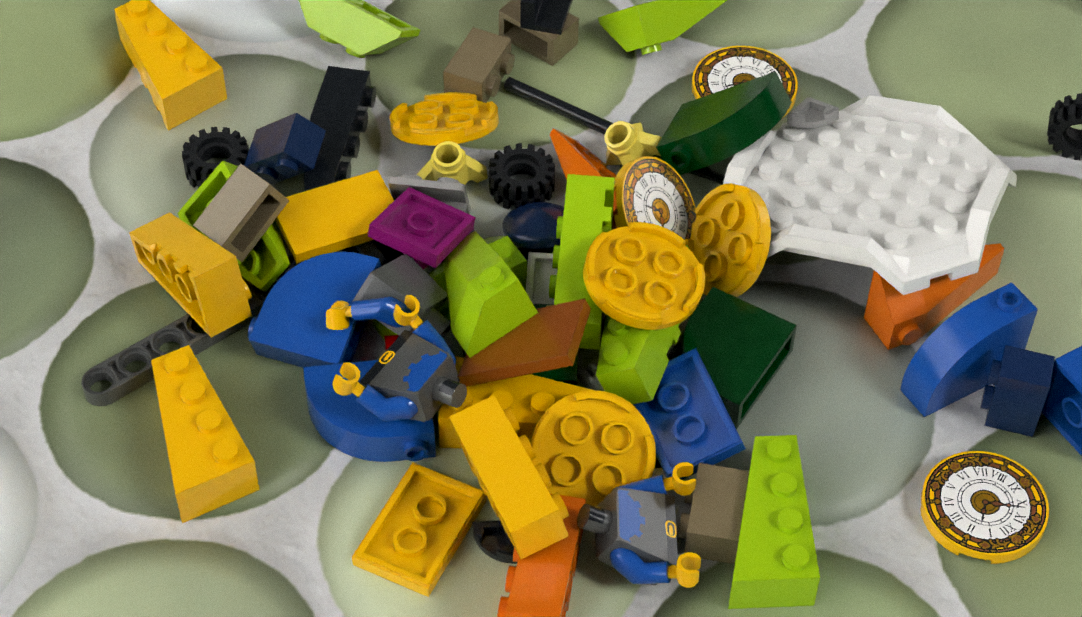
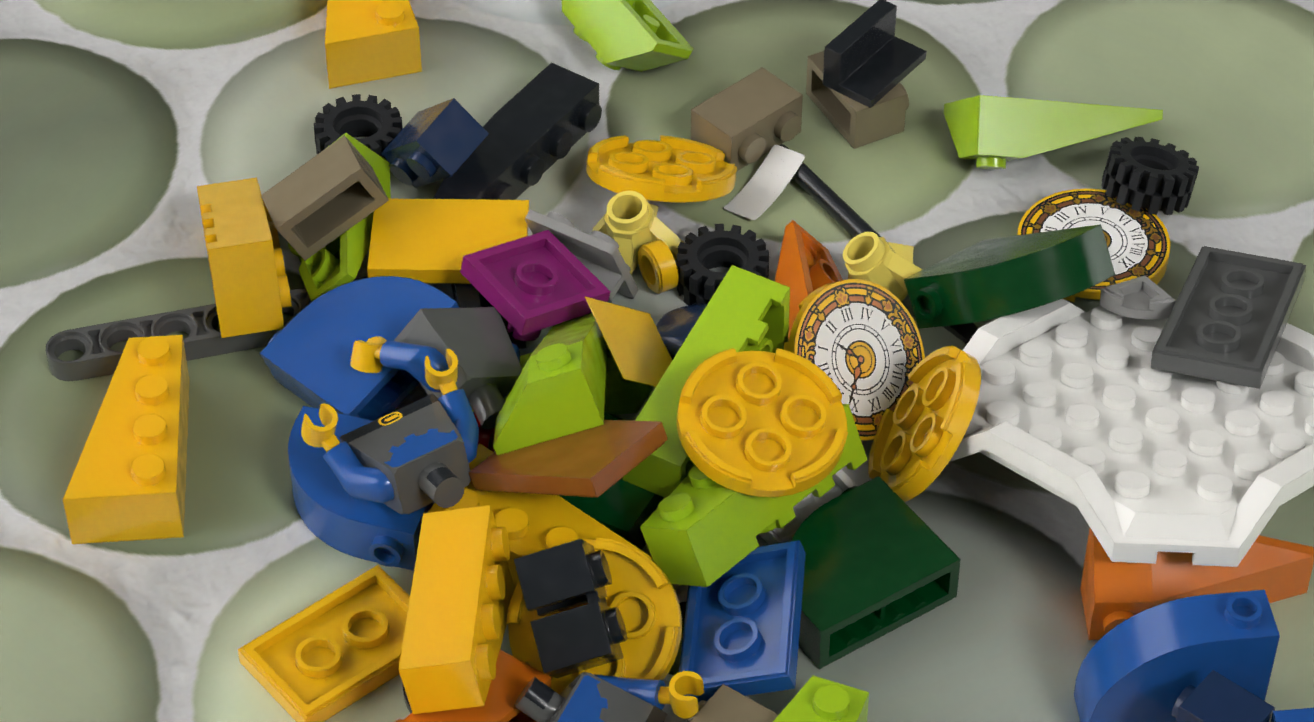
camera: 25 degrees right, 5 degrees down
(480, 188) = (658, 266): none -> yellow tile
(512, 107) = (766, 183): none -> white sticker
(513, 249) = (632, 341): none -> yellow sticker
(594, 465) = (561, 580): none -> black piece
(758, 27) = (1149, 175): none -> black tyre
(876, 108) = (1229, 317): none -> dark grey tile

